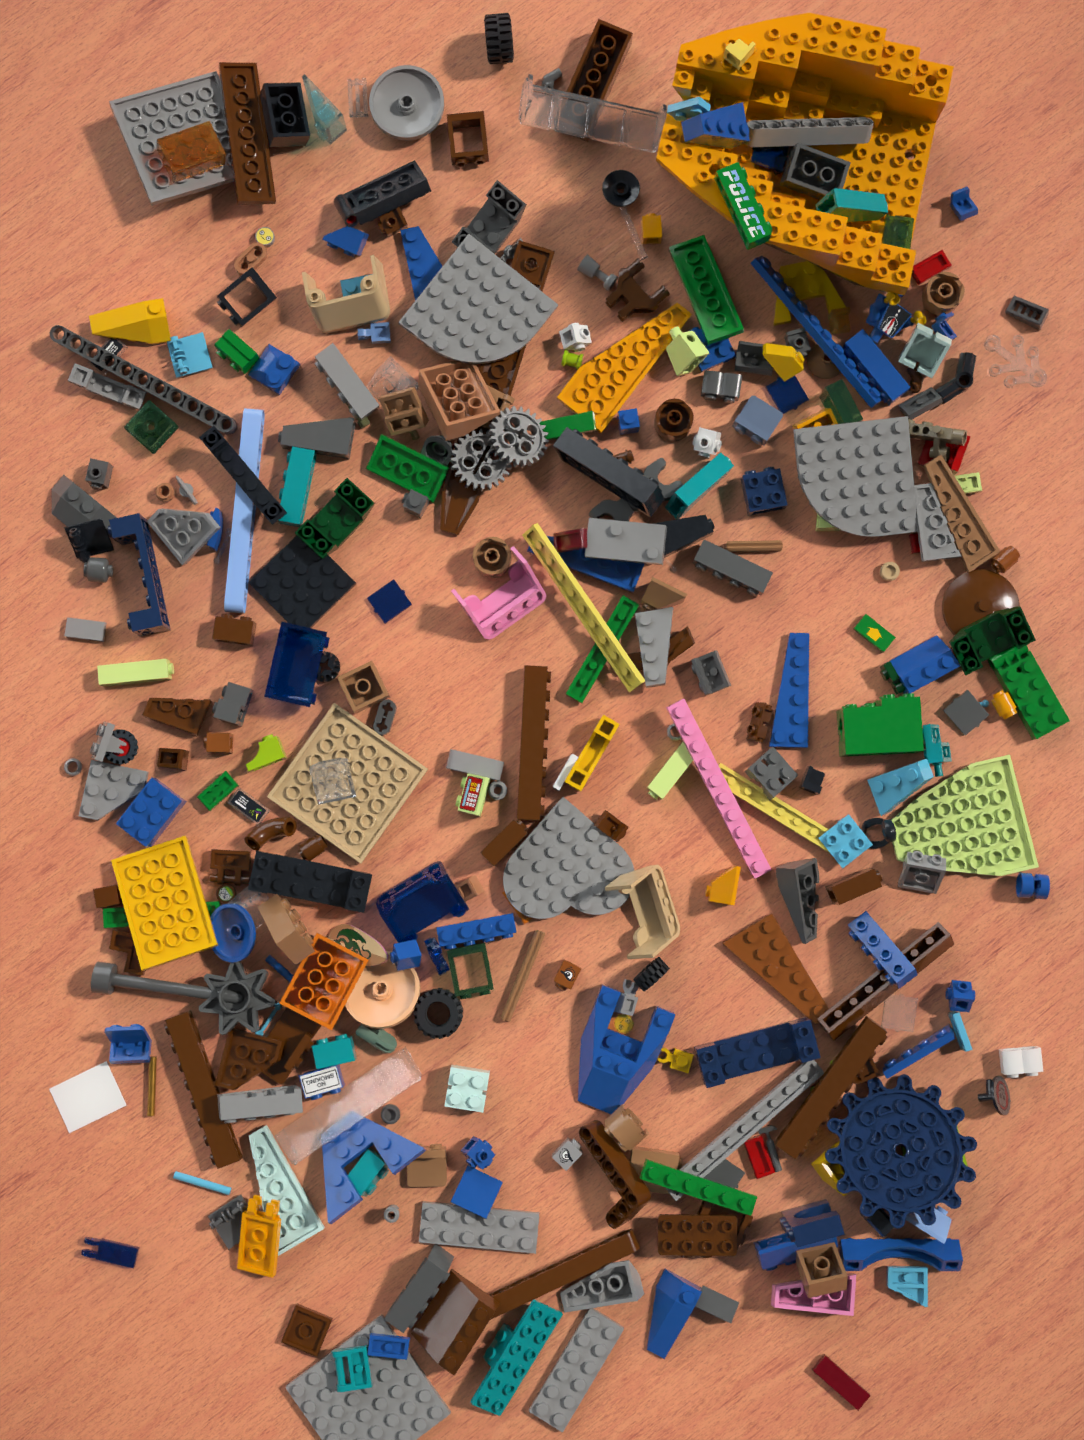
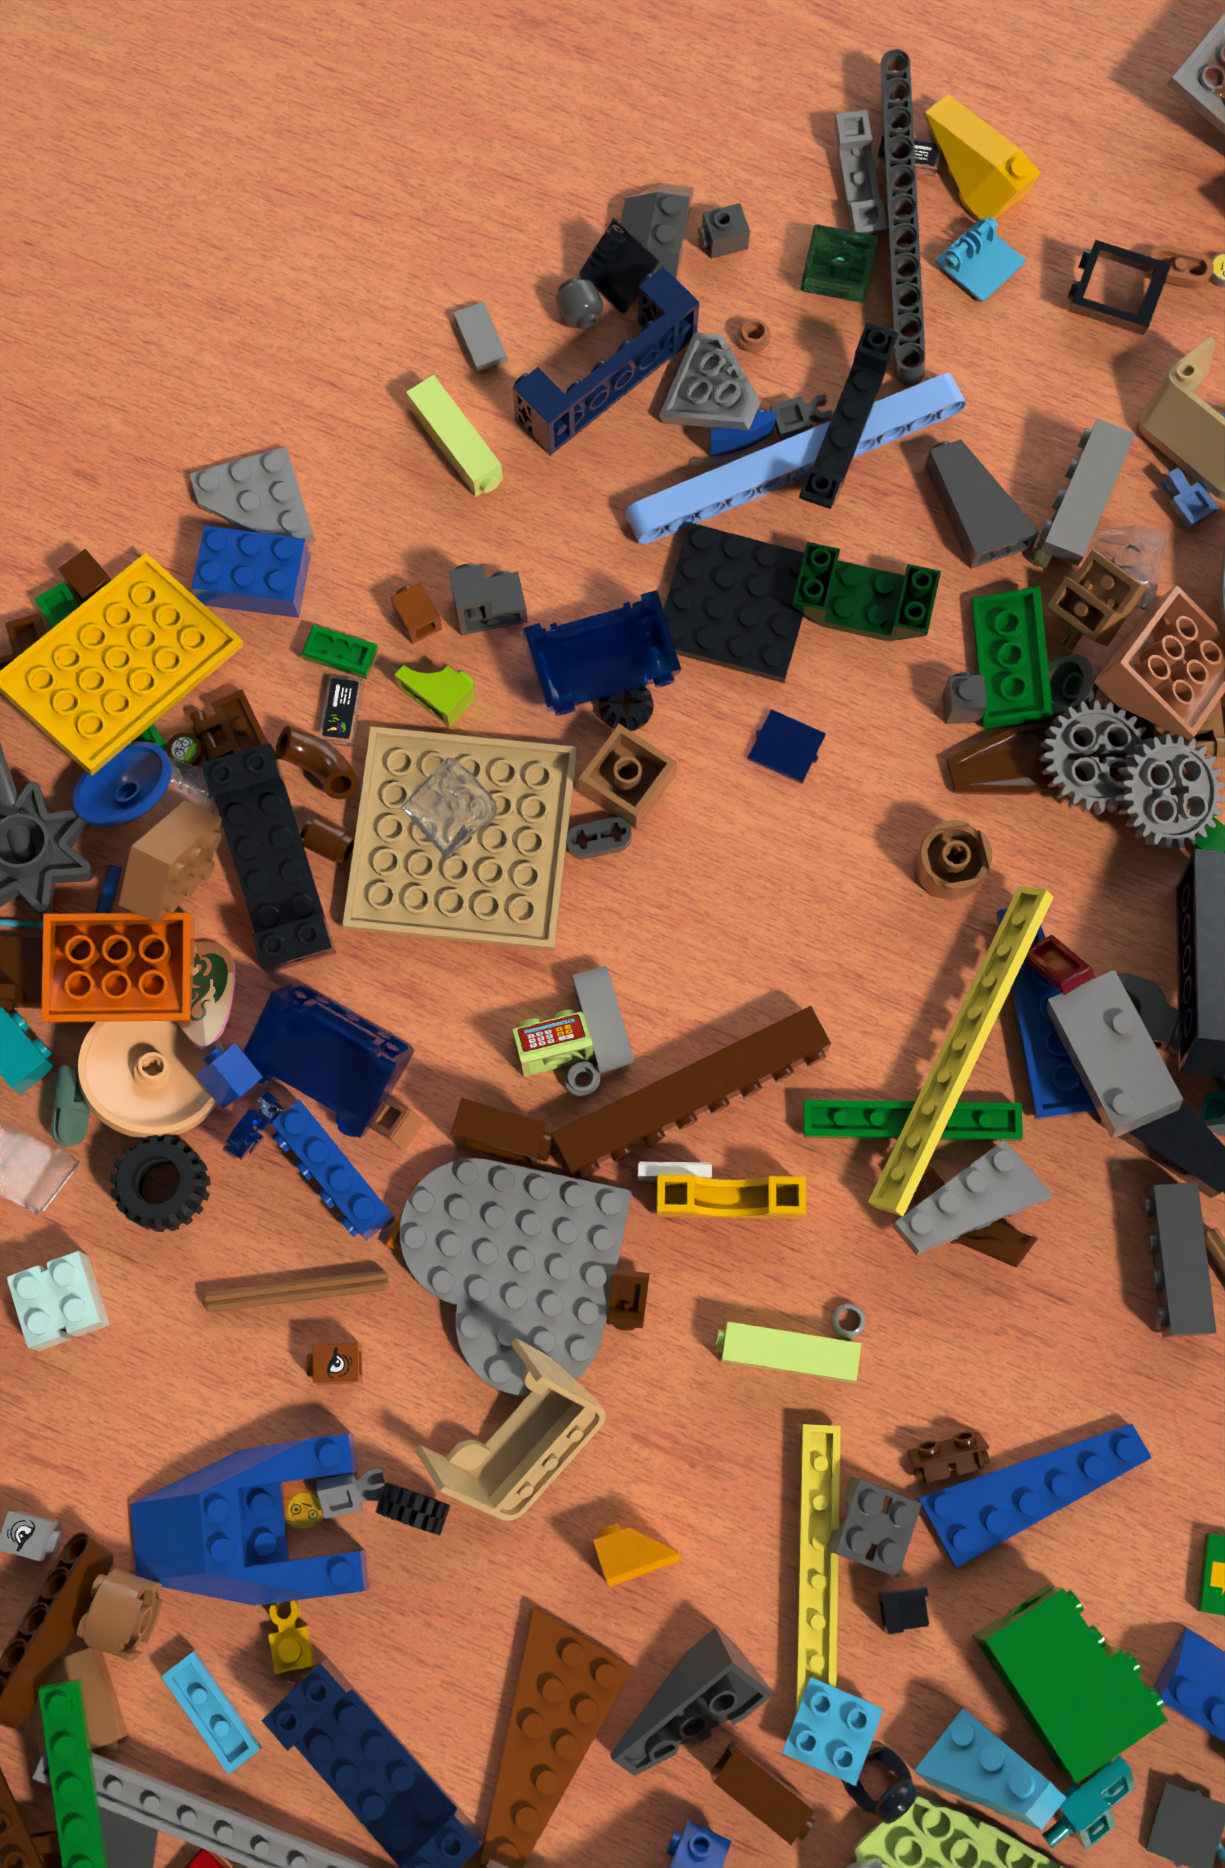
camera: 60 degrees right, 10 degrees down
(67, 764) = (261, 418): light grey piece -> none
(116, 745) = (326, 465): plate -> none
(173, 758) = (354, 562): reddish brown slope -> none
(178, 713) = (427, 532): reddish brown wing -> none
(186, 490) = (775, 363): light grey piece -> none
(222, 498) = (797, 417): none -> dark grey plate
(234, 630) = (603, 541): reddish brown brick -> none
(236, 351) = (1028, 320): green brick -> none
(274, 369) = (1037, 389): blue slope -> none
(297, 485) = (881, 511): teal brick -> none
(466, 993) = (218, 1212): clear green window -> none
(507, 603) = (891, 926): bright pink windscreen -> none
(661, 595) = (1061, 1165): medium nougat slope -> none
(689, 1109) = (211, 1712): none -> medium azure plate
(710, 673) = (981, 1323): dark grey bracket -> none
(718, 788) = (793, 1449): bright pink plate -> none
(889, 674) = (1169, 1643): dark green plate -> none

